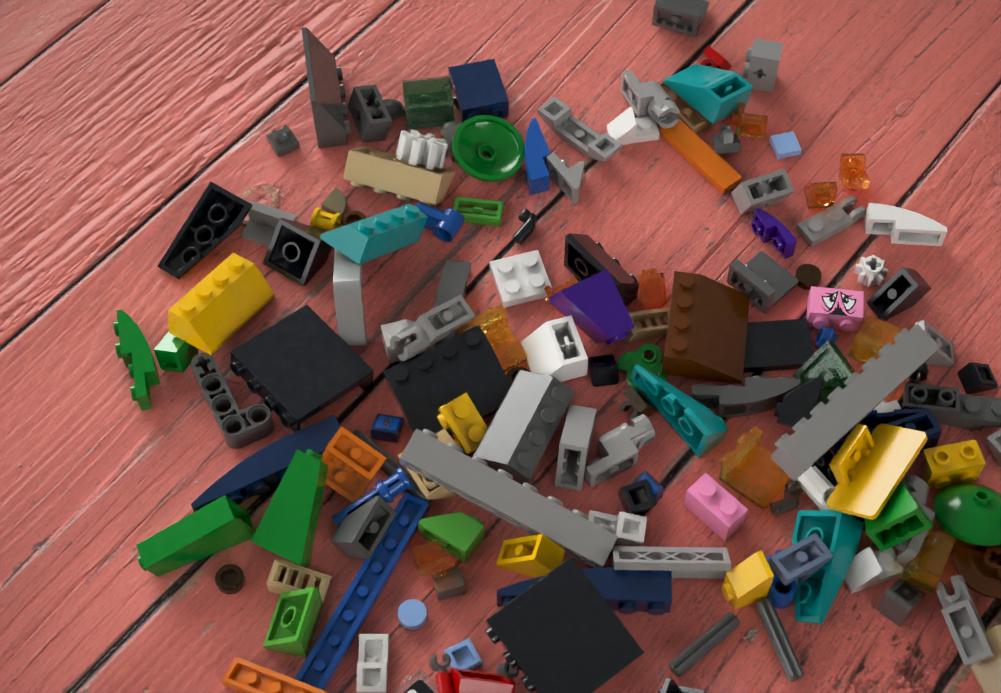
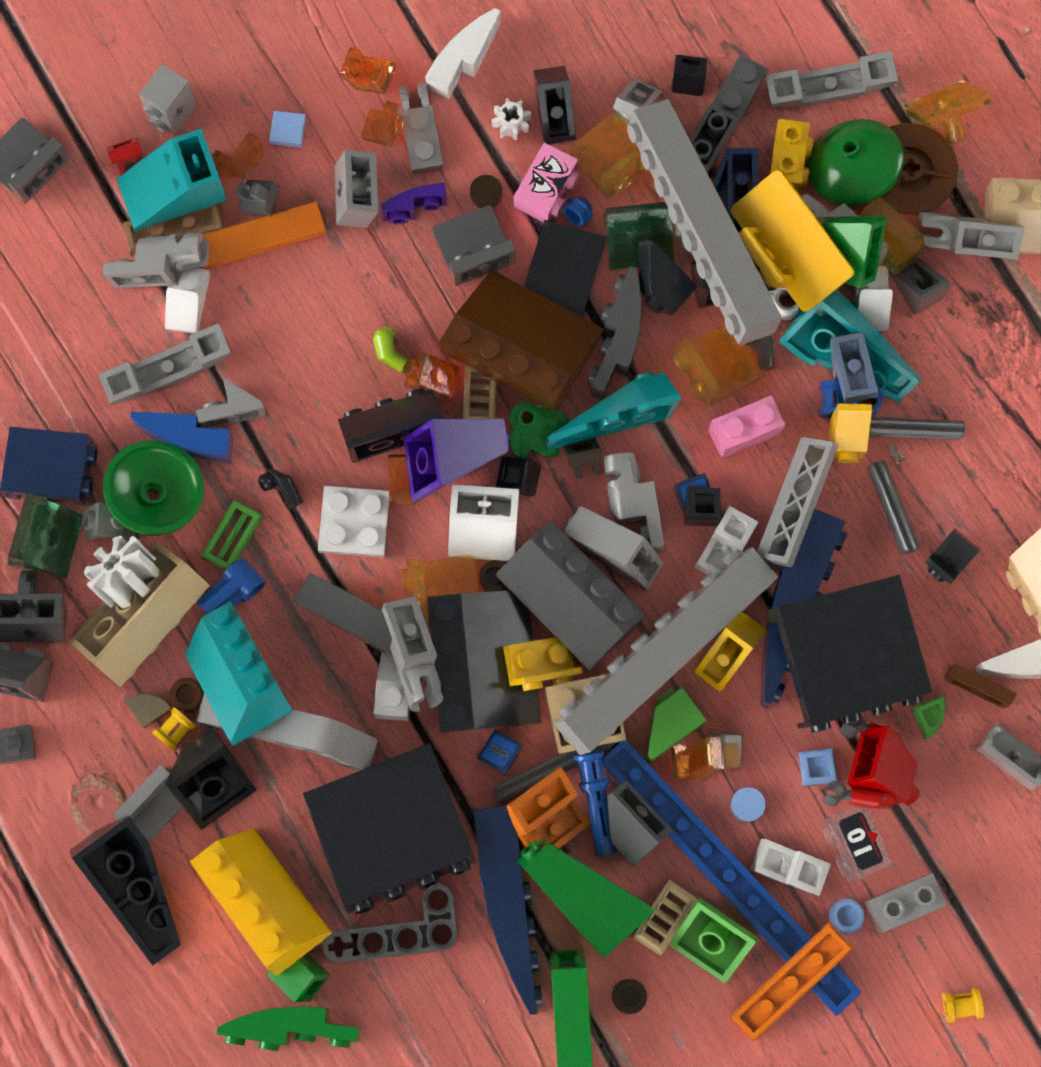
camera: 70 degrees left, 20 degrees up
(653, 256) = (385, 349): none -> lime arm

